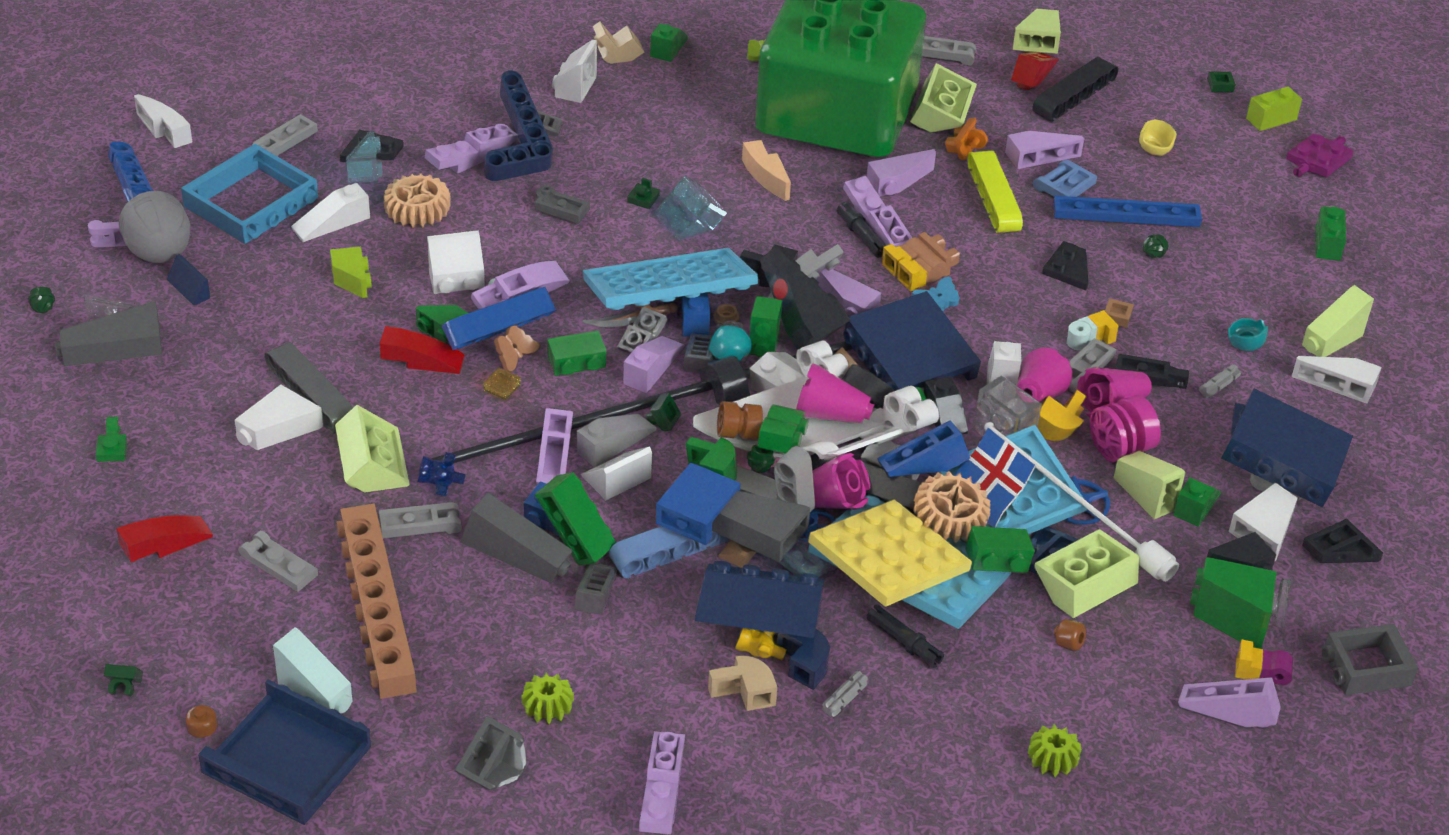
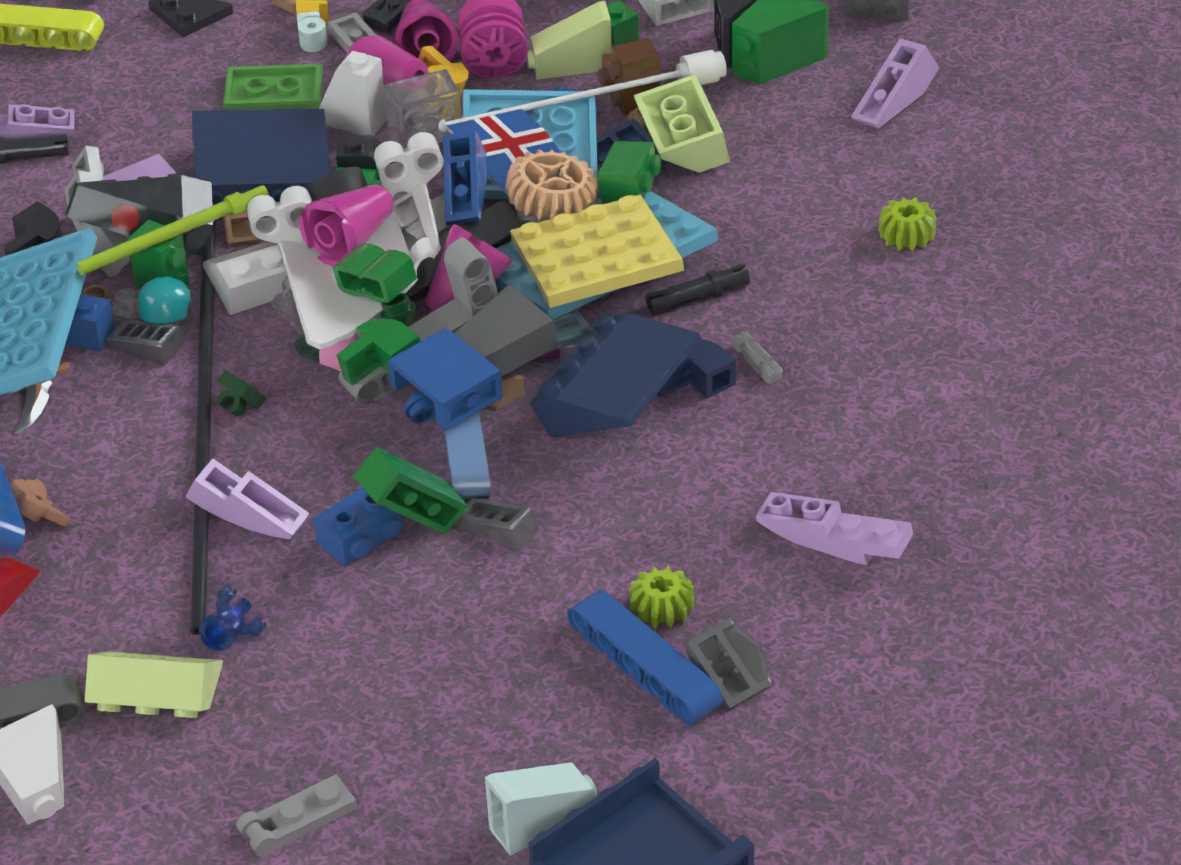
camera: 65 degrees left, 0 degrees up
(377, 602) = (423, 721): nougat brick -> none
(420, 520) = (300, 659): light grey plate -> none
(484, 699) = (645, 655): none -> blue beam
(502, 383) = (95, 528): clear yellow plate -> none
(515, 540) = (393, 568): dark grey slope -> none
(576, 353) = (85, 445): green brick -> none
(610, 436) = (256, 447): light grey slope -> none
(620, 473) = (316, 454): white slope -> none
(646, 328) = (81, 384): light grey slope -> none
(649, 362) = (142, 383): lavender slope -> none
(726, 378) = (223, 315): black brick -> none
(738, 420) = (345, 300): dark orange wheel -> none
(748, 677) = (713, 420): tan brick -> none
(759, 644) = (661, 406): yellow piece -> none
(813, 333) = (232, 204): none -> lime bar
(920, 259) = (106, 107): hips -> none
(943, 294) = (175, 117): dark azure animal -> none
(1005, 325) = (273, 87): none -> bright green tile
(1070, 634) = (751, 170): dark orange piece -> none
(1135, 518) = (629, 63): none -> reddish brown brick
(1260, 663) = (857, 50): leg -> none

